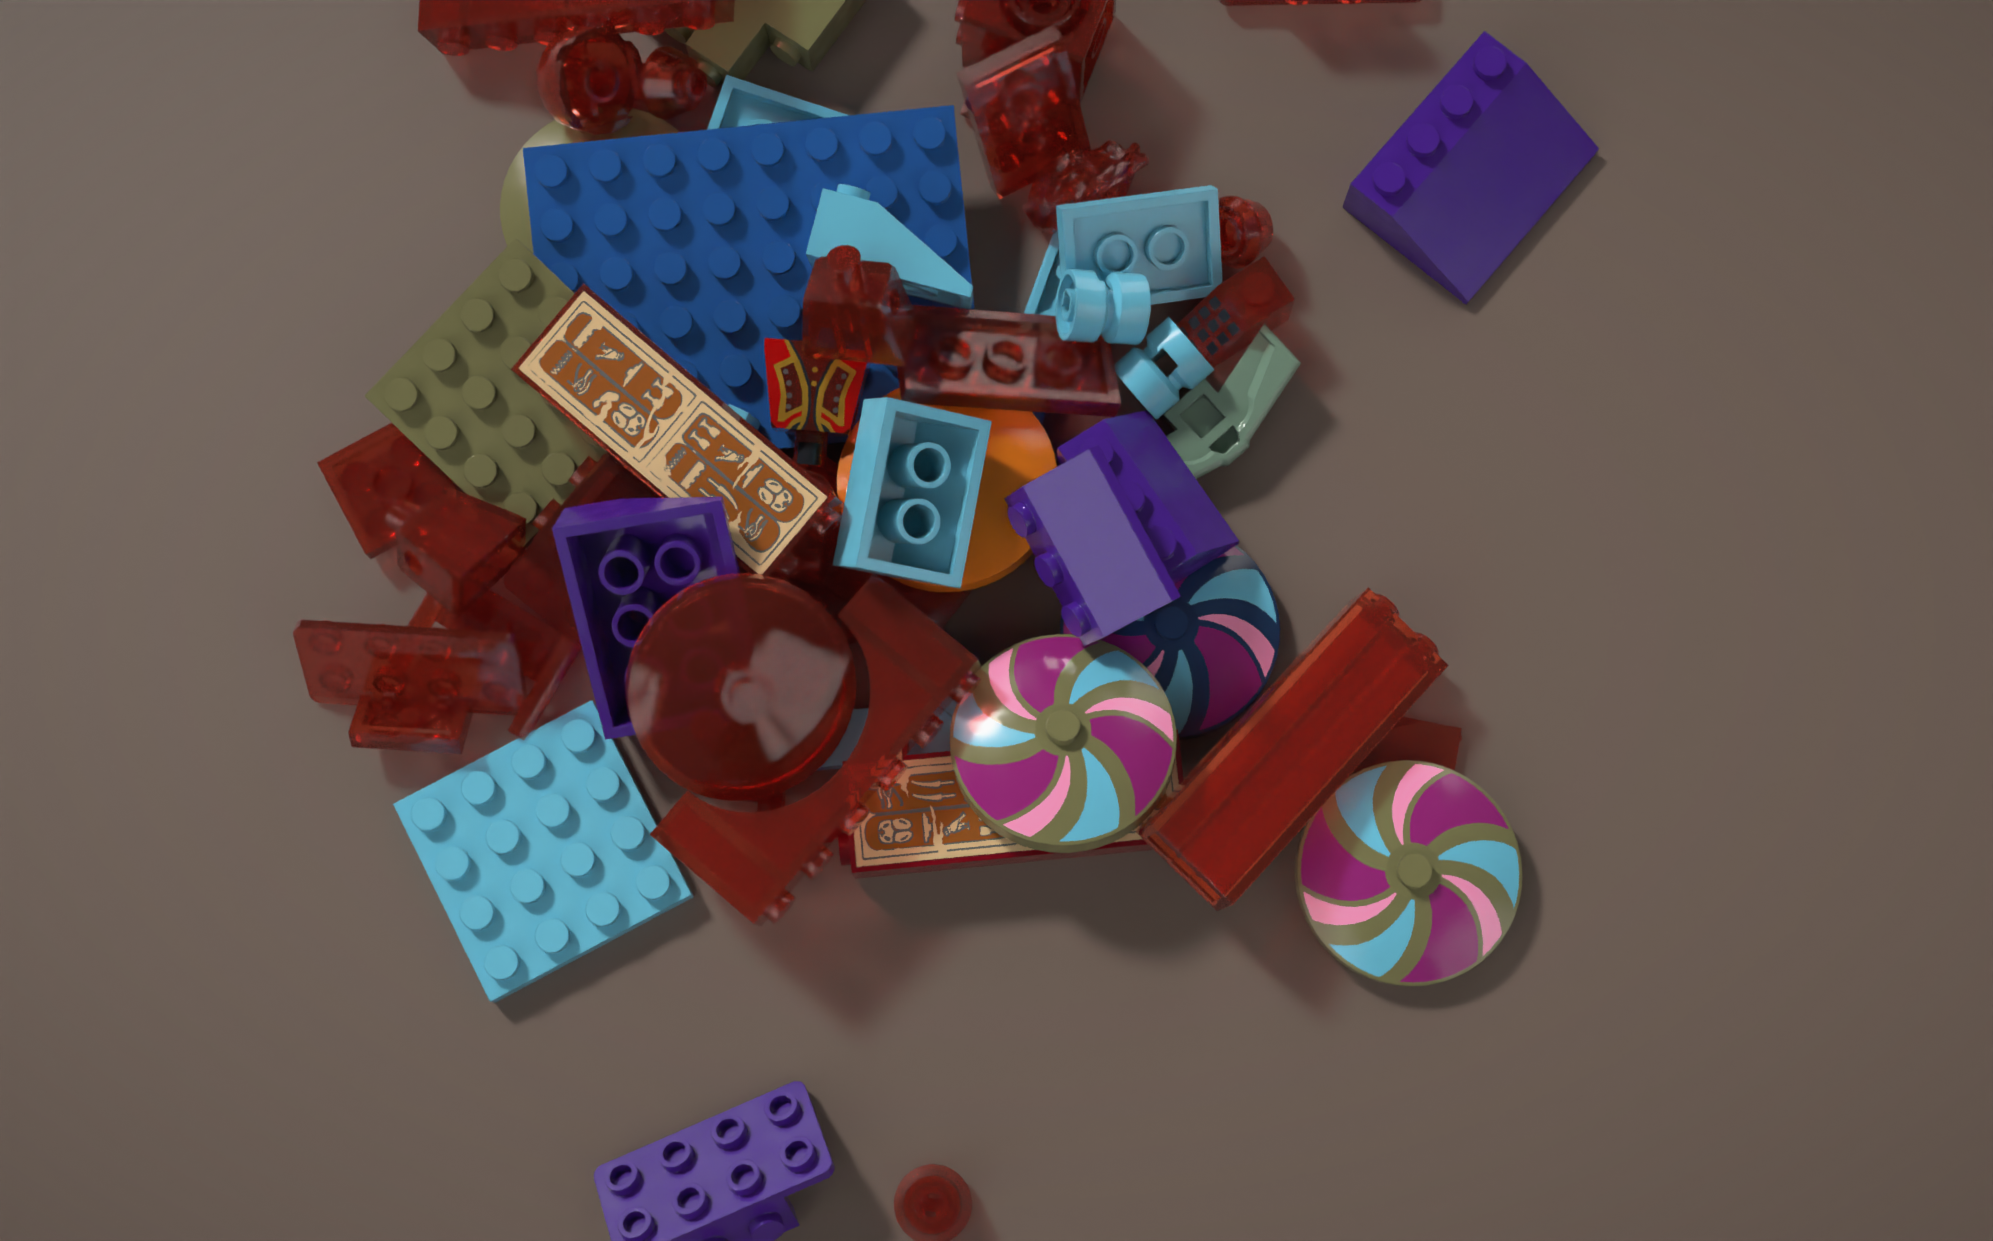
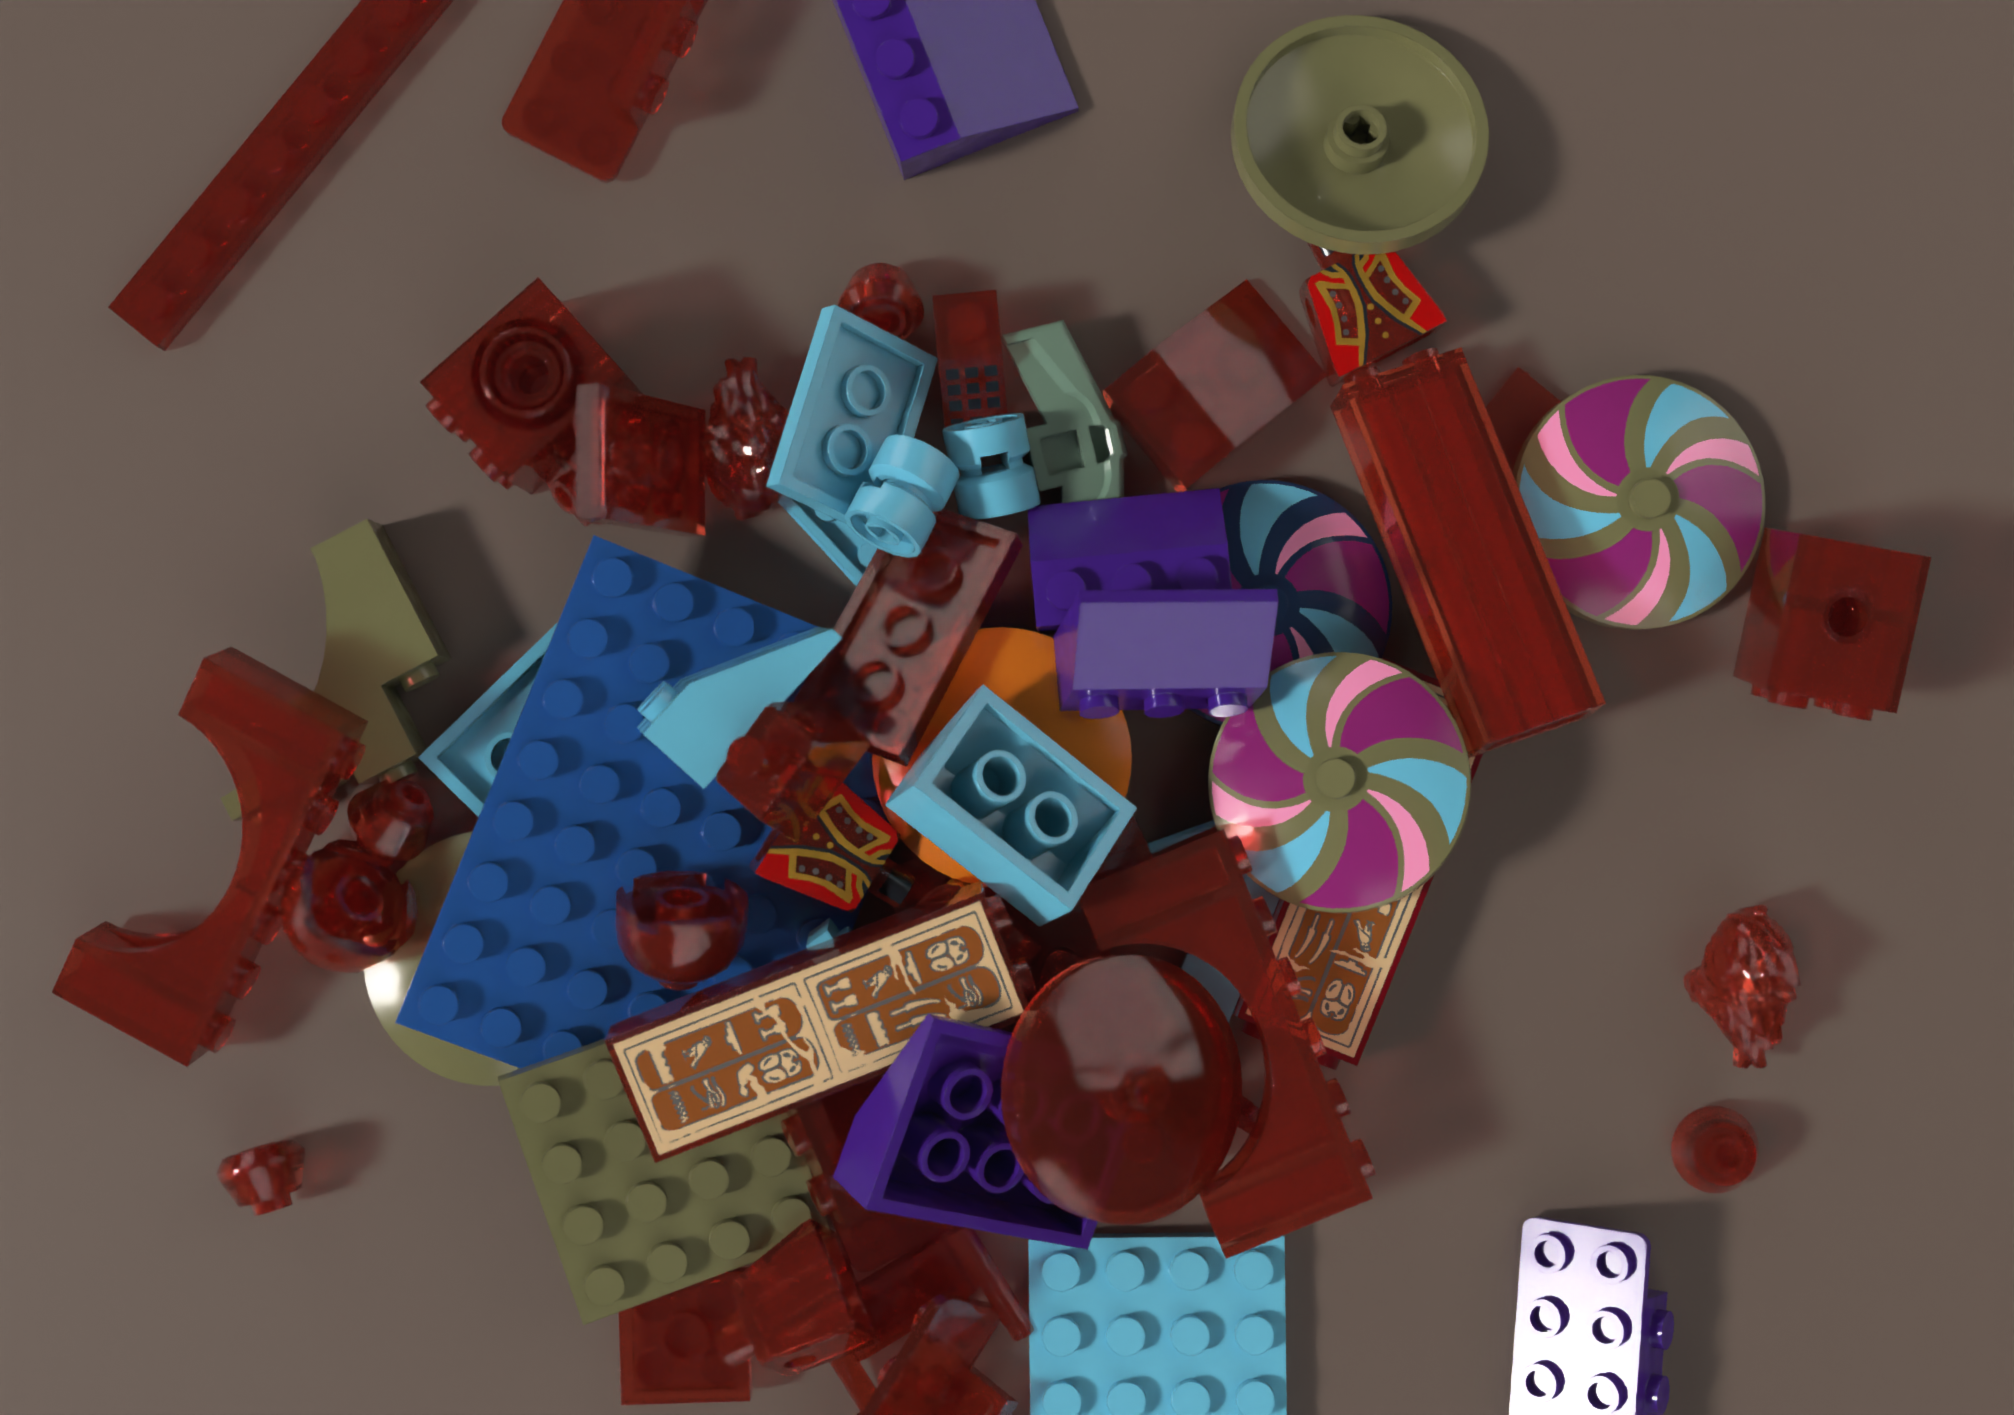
camera: 65 degrees left, 10 degrees up
(364, 127) = (264, 1175): none -> clear red cone
(695, 307) = (680, 927): none -> clear red cylinder
(1079, 1153) = (1747, 982): none -> clear red hair
(1315, 503) = (1212, 386): none -> clear red slope
(1367, 1088) = (1842, 662): none -> clear red brick
(1441, 581) = (1364, 310): none -> torso
(1566, 508) = (1359, 134): none -> olive dish

